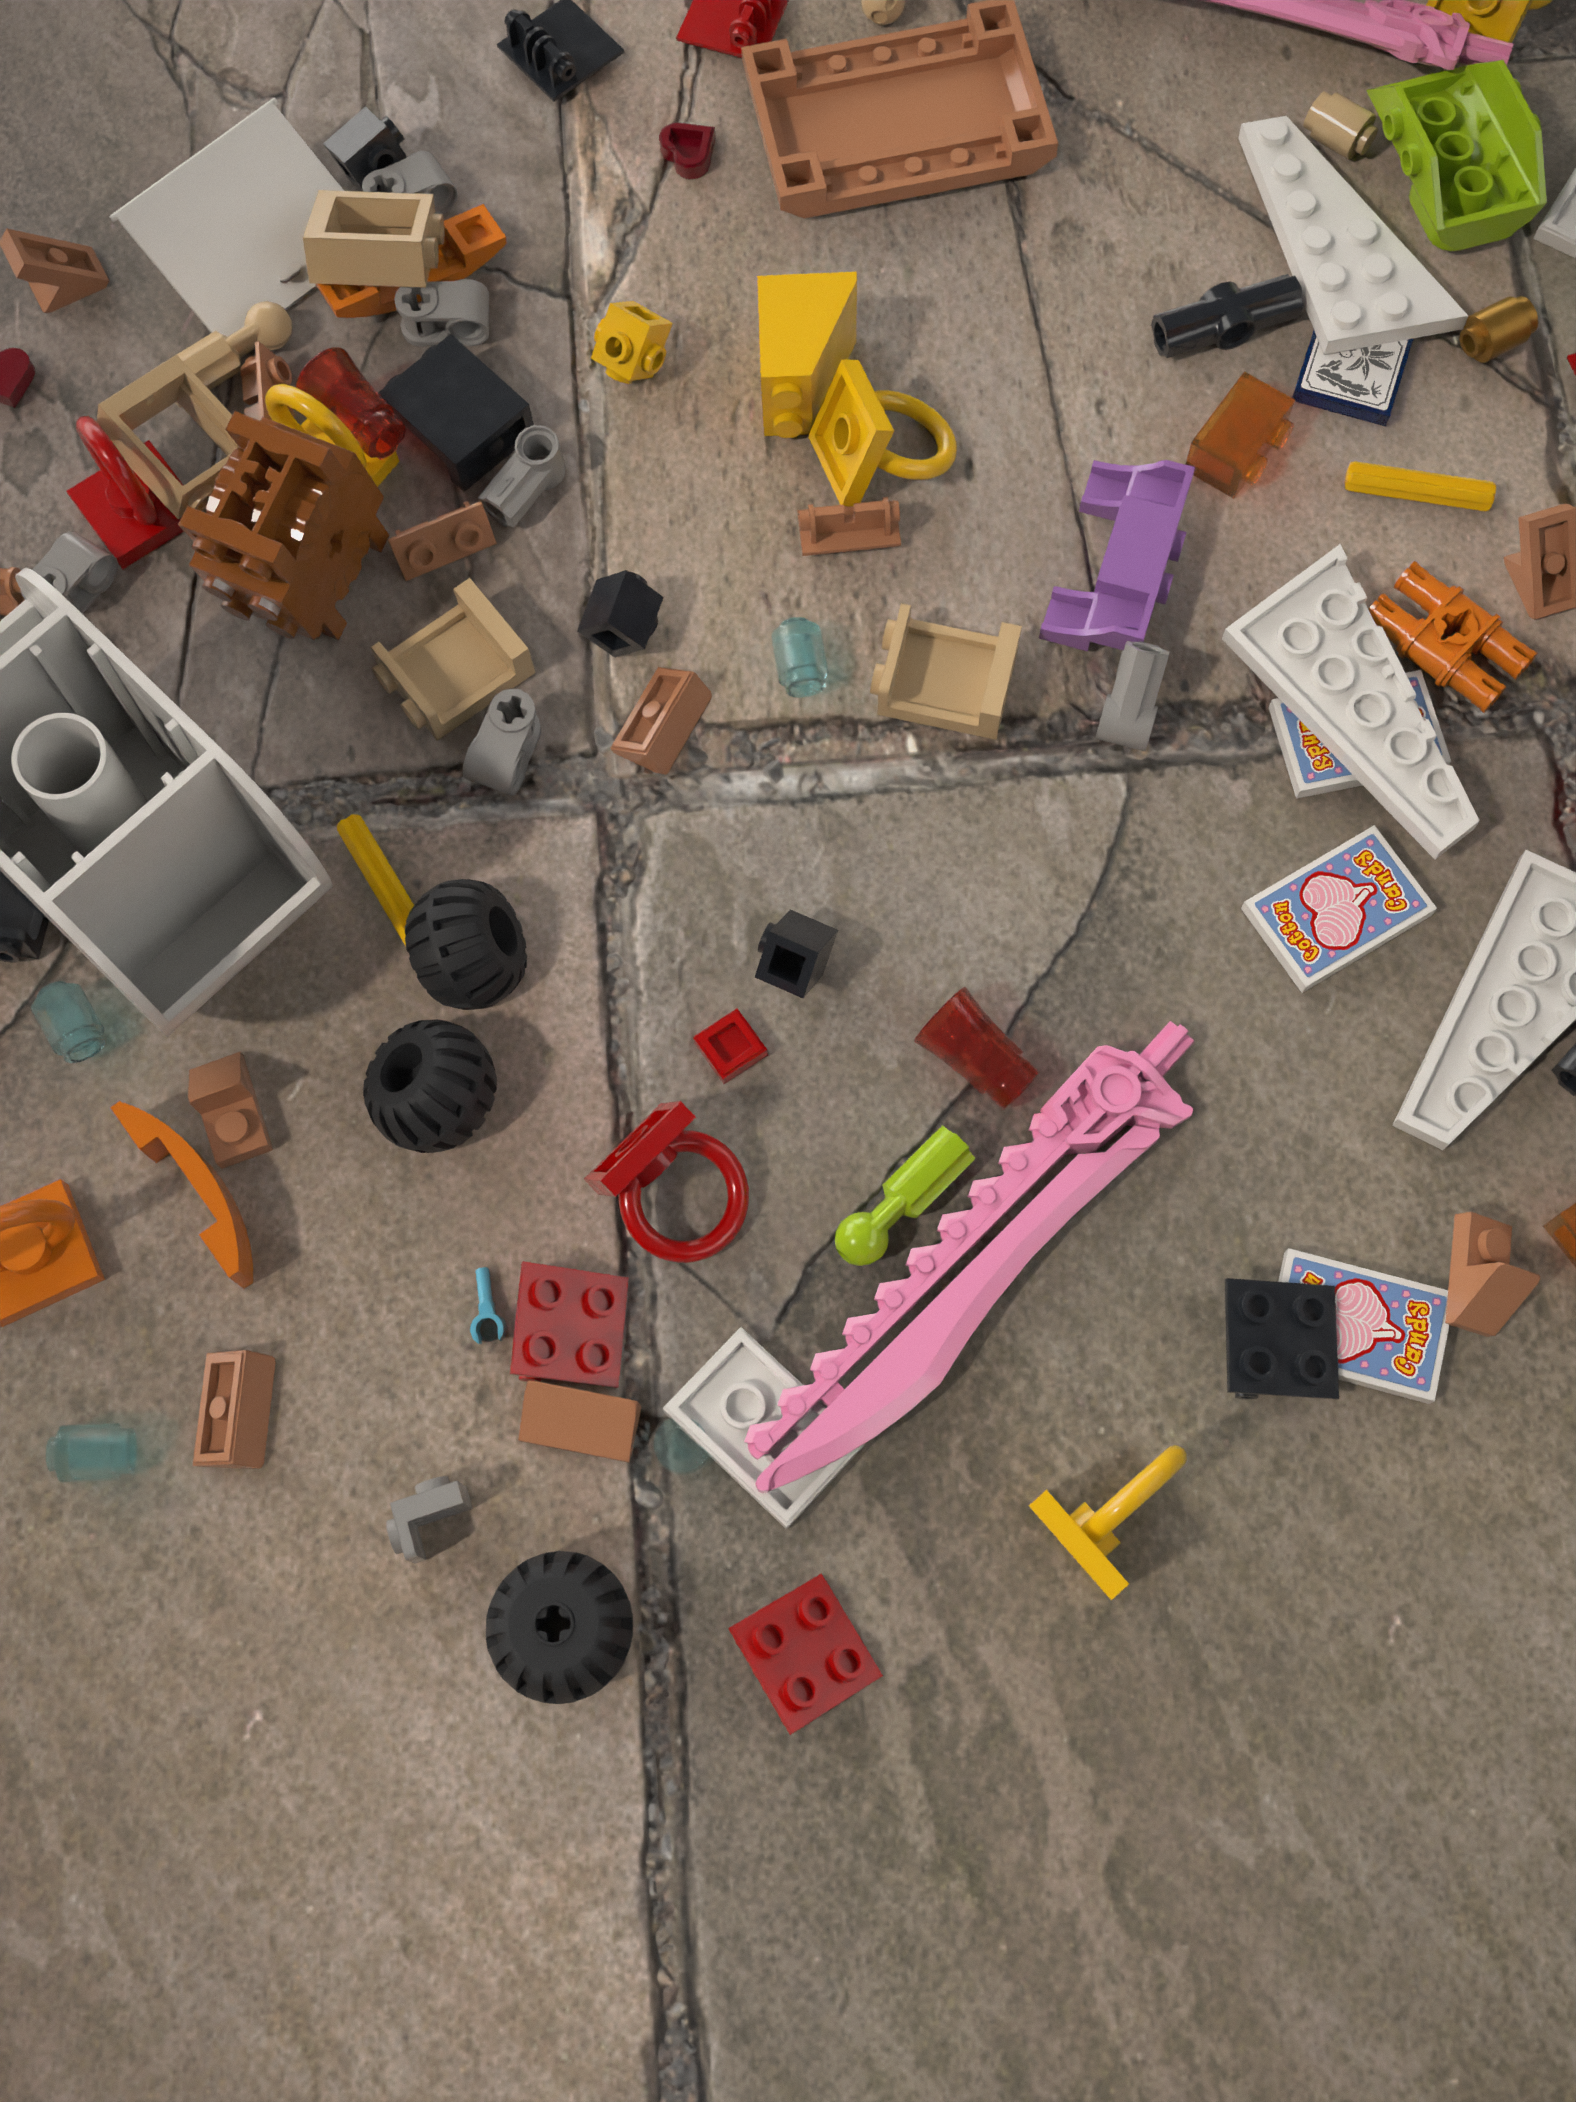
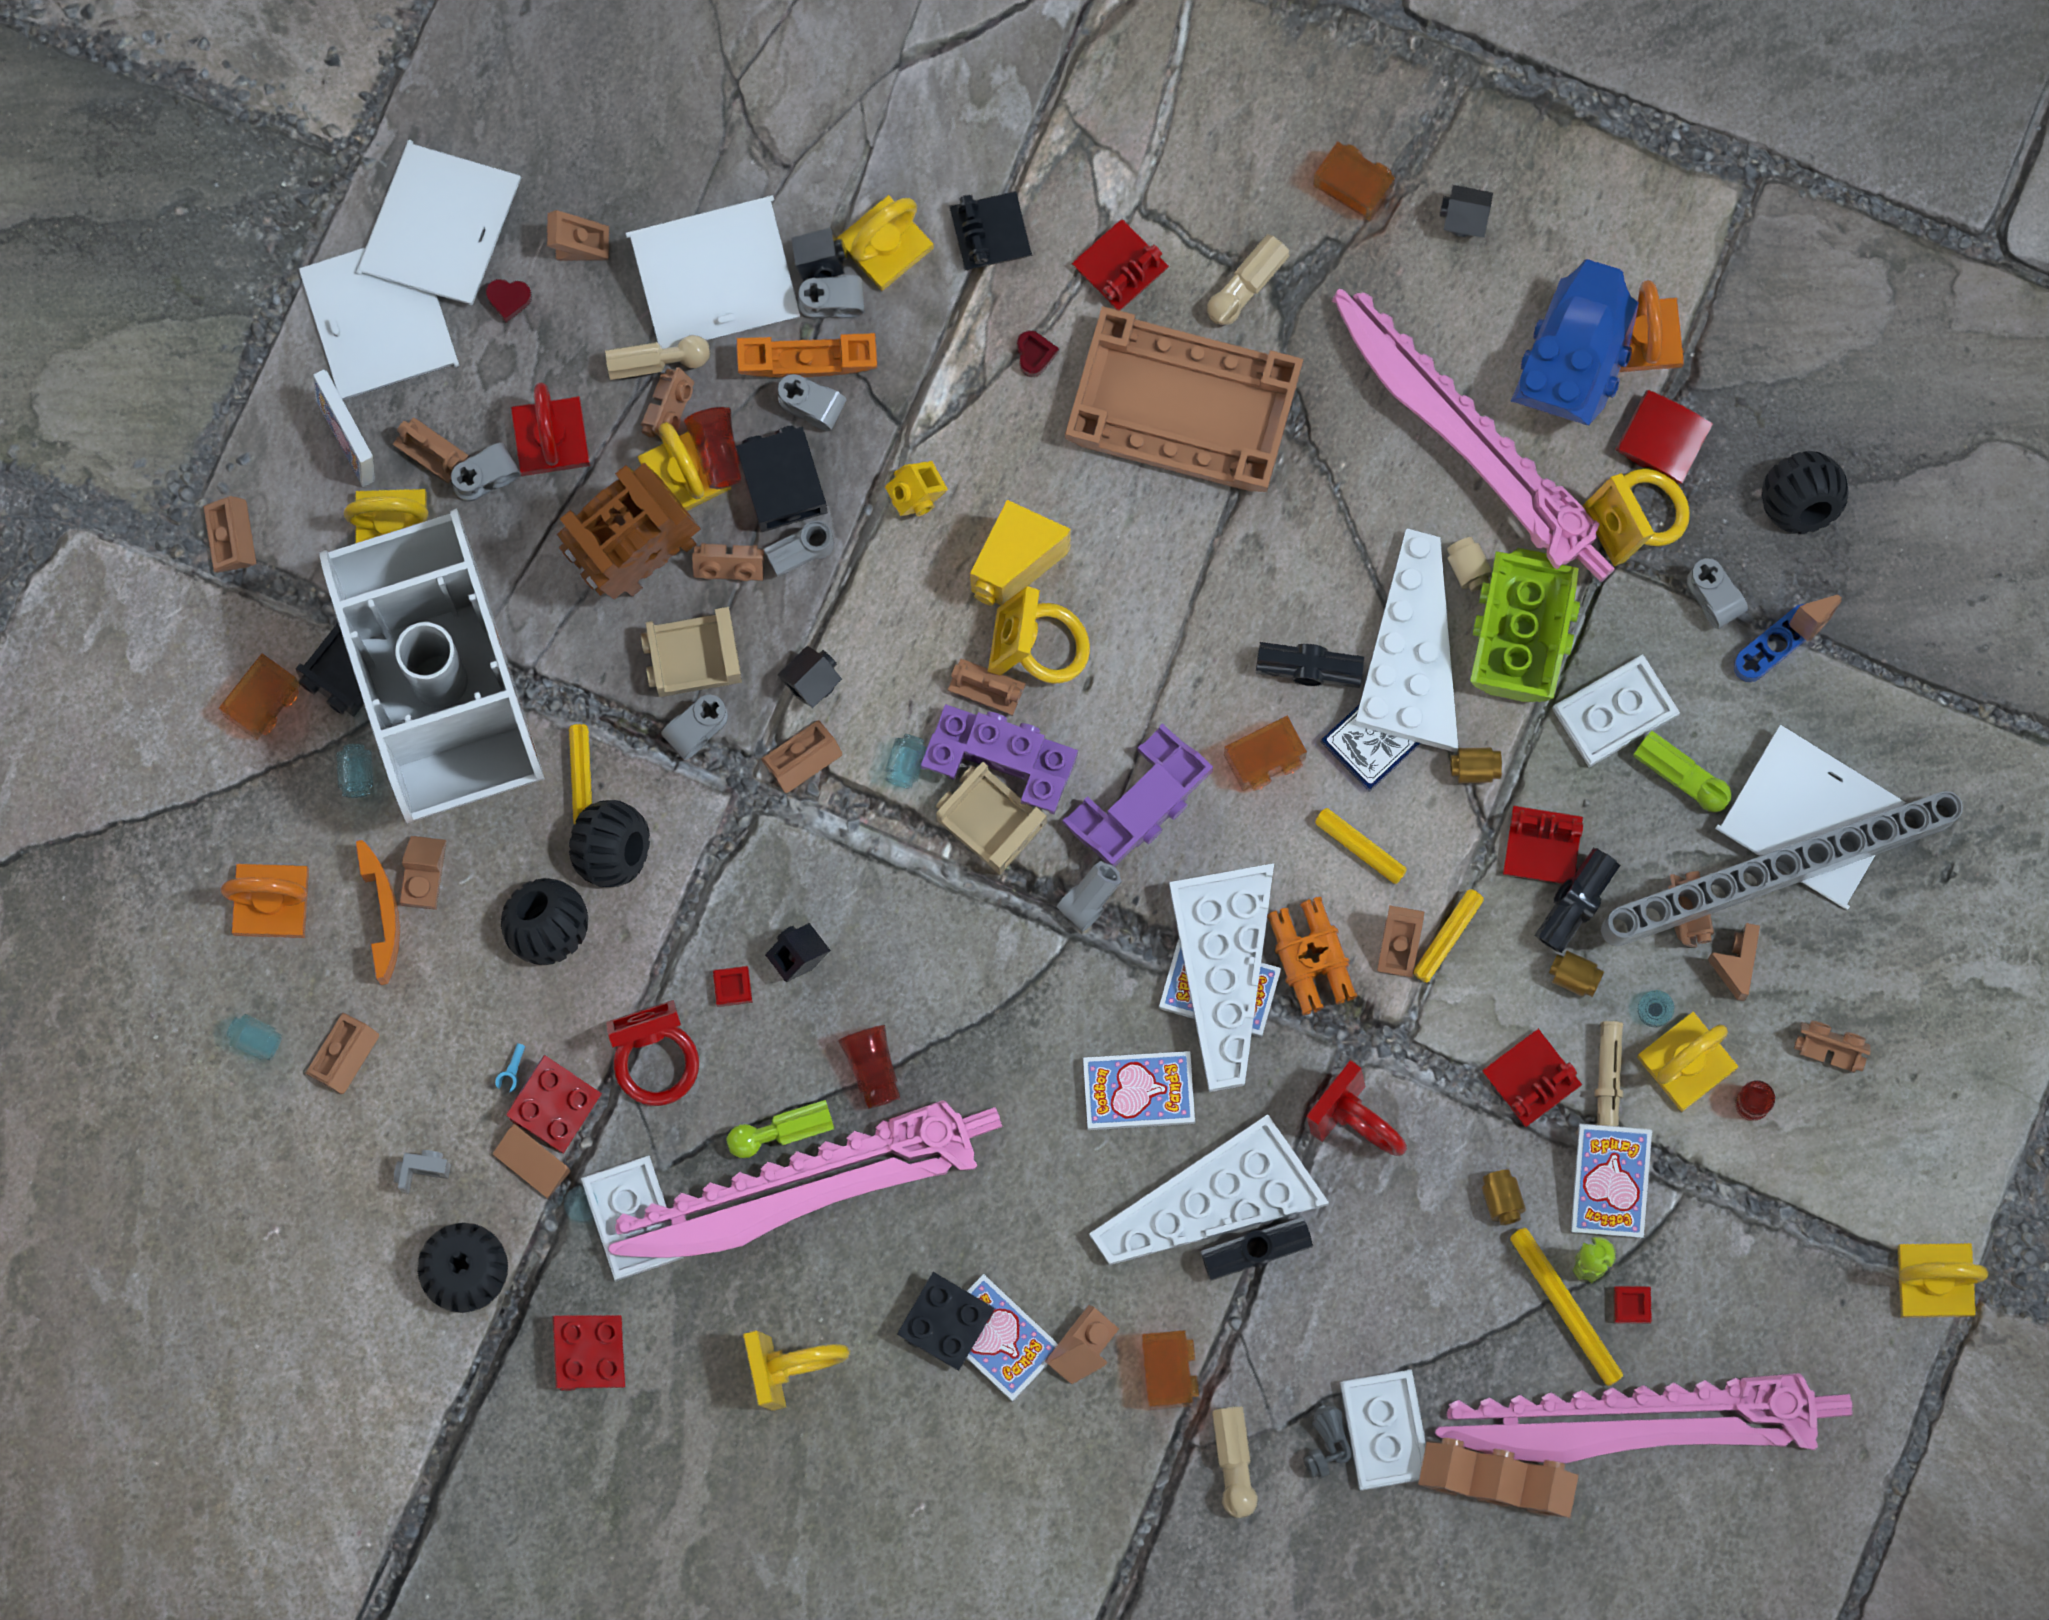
camera: 25 degrees right, 5 degrees up
(146, 398) = (623, 404): tan window -> none
(372, 238) = (775, 353): tan window -> none
(439, 106) = (887, 241): none -> yellow tile
(929, 574) = (1004, 748): none -> medium lavender bracket

